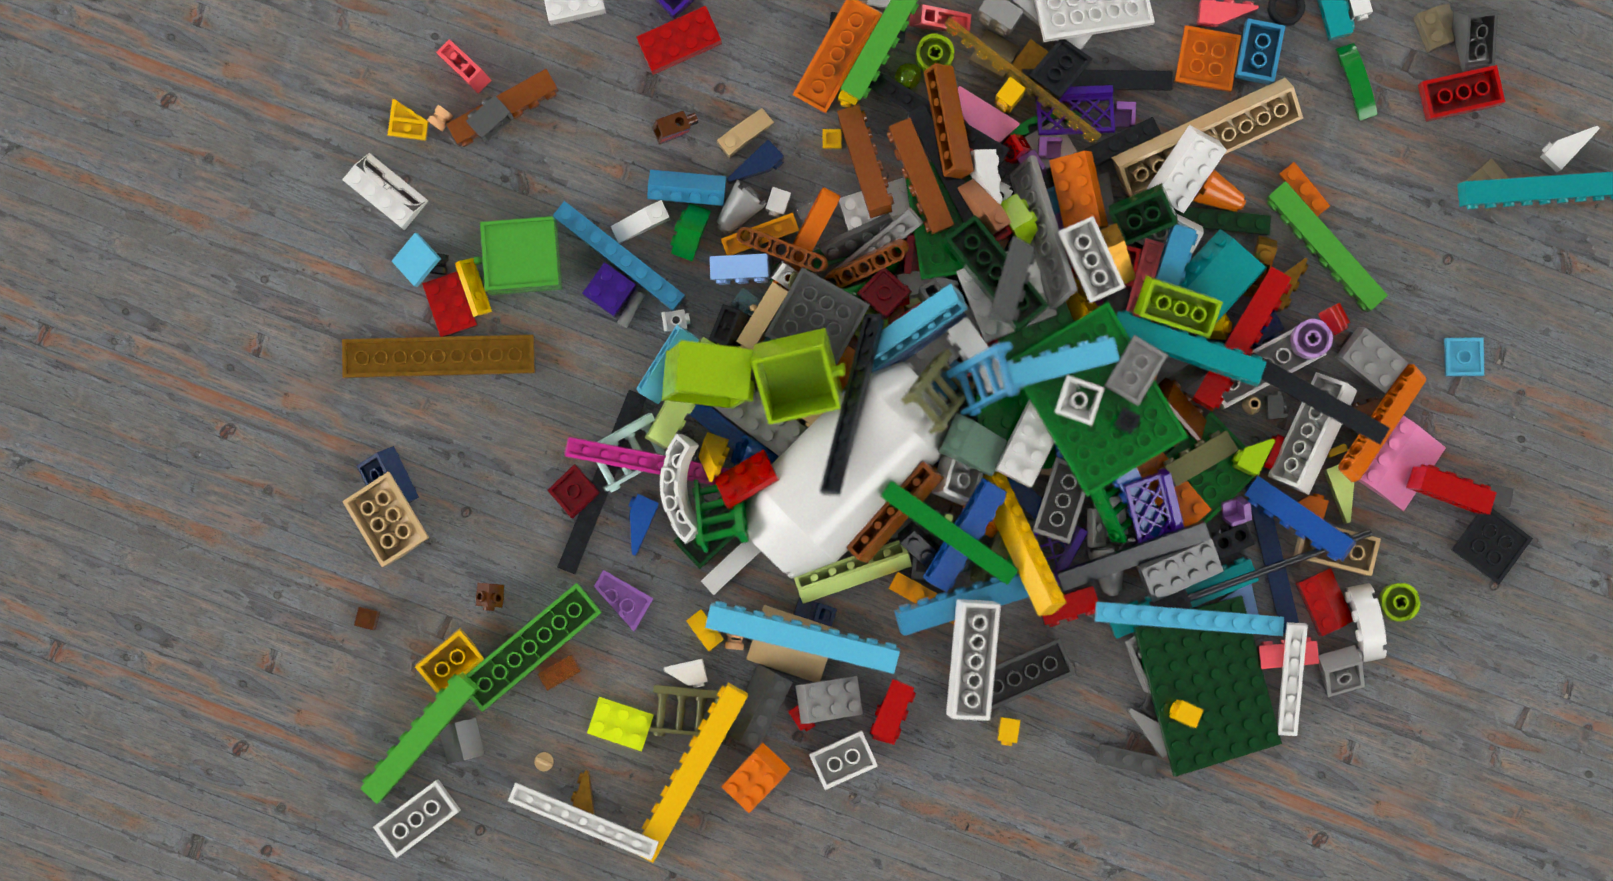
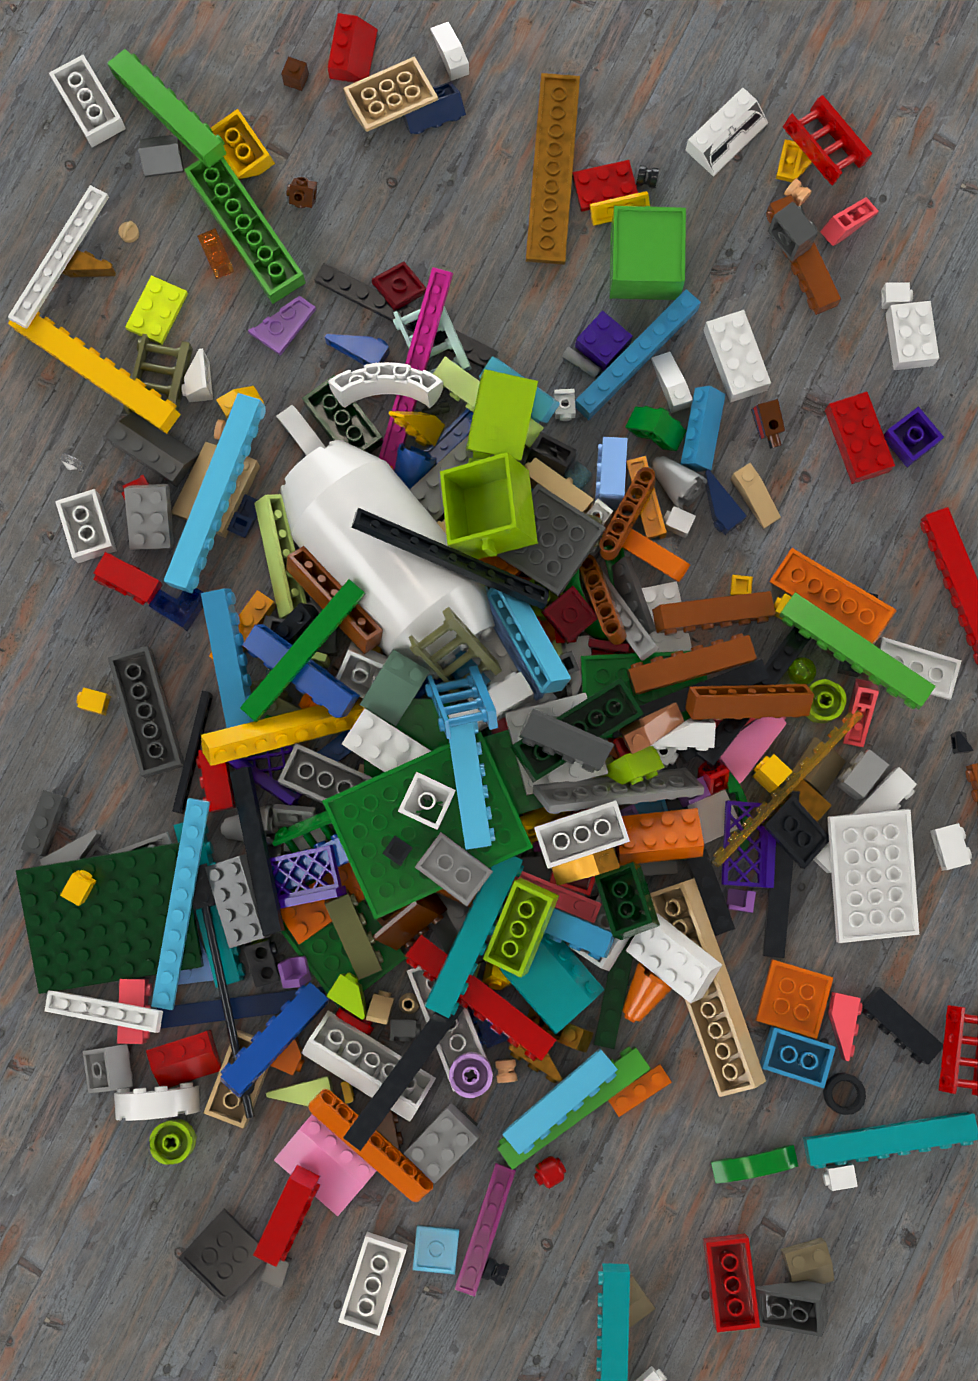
camera: 95 degrees right, 5 degrees down
(325, 469) = (450, 51): none -> white slope
(335, 565) = (351, 49): none -> red slope
(373, 82) = (838, 129): none -> red fence
(416, 259) = (653, 153): medium azure tile -> none
(534, 16) = (896, 294): none -> white brick
(611, 162) = (737, 356): none -> white brick
(738, 514) = (349, 435): green fence -> none
(746, 479) = (386, 447): red plate -> none
(756, 777) = (78, 433): orange brick -> none
(782, 785) = (72, 463): none -> clear tile
(916, 661) = (178, 611): none -> clear blue brick
(973, 659) = (165, 663): white brick -> none
(1049, 147) = (711, 813): medium lavender panel -> none
(1051, 631) = (192, 752): none -> black tile
(1259, 429) = (380, 1007): none -> tan slope
(1301, 310) = (506, 1070): none -> light nougat wheel
(1324, 258) = (559, 1101): none -> medium azure brick
(1335, 318) = (491, 1106): red brick -> none
(1385, 262) = (549, 1172): none -> red head
(1441, 314) = (485, 1229): none -> magenta plate
(1476, 301) = (499, 1274): none -> black wheel
(1499, 408) = (373, 1283): none -> white brick

